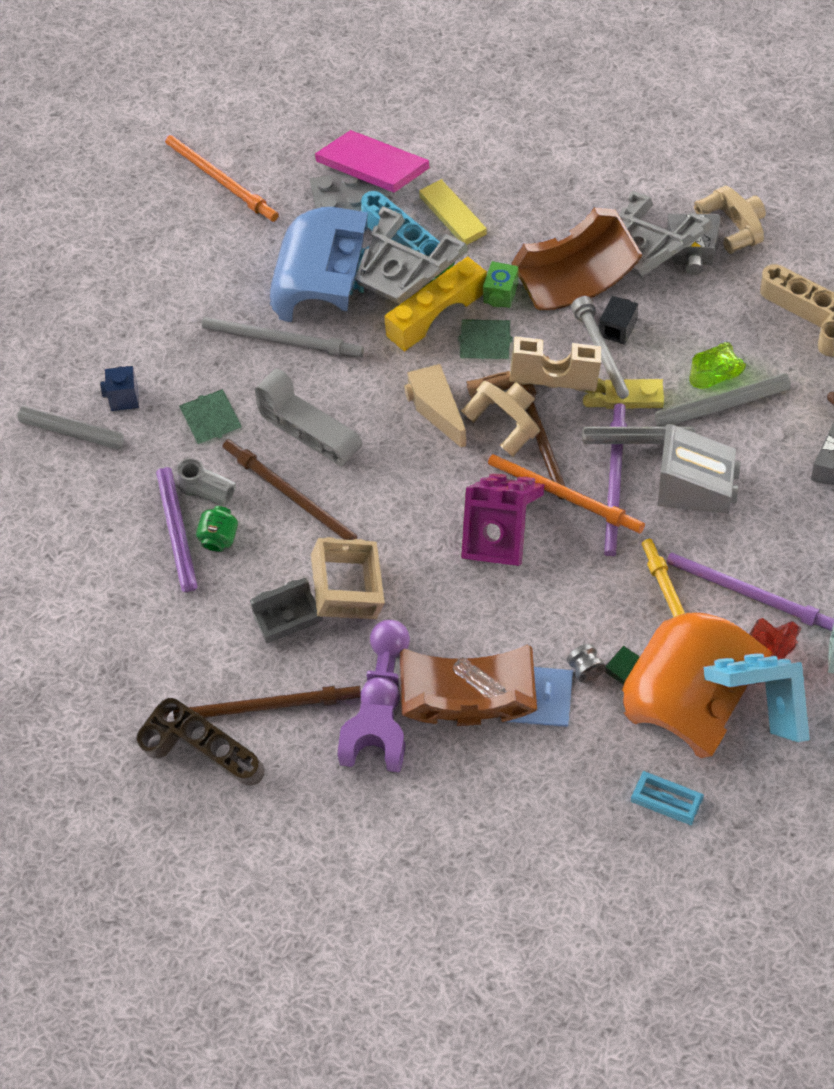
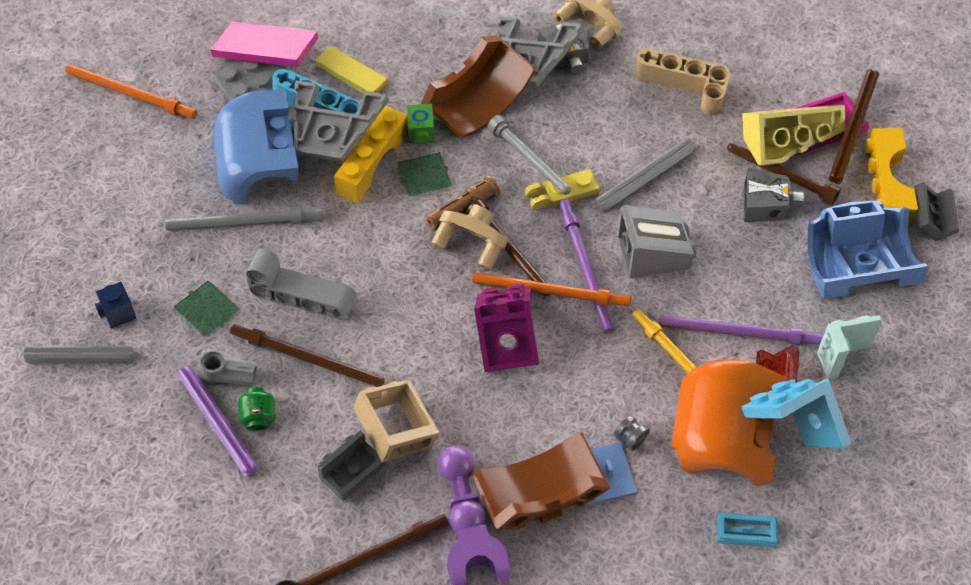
camera: 25 degrees left, 0 degrees up
(435, 401) = (407, 240): tan slope -> none
(477, 678) = (547, 475): clear axle -> none
(575, 372) = (522, 180): tan arch -> none
(618, 319) = (533, 127): black brick -> none
(621, 664) = (662, 425): dark green tile -> none
(625, 435) = (584, 224): light grey axle -> none
(715, 366) = (629, 147): clear neon green piece -> none

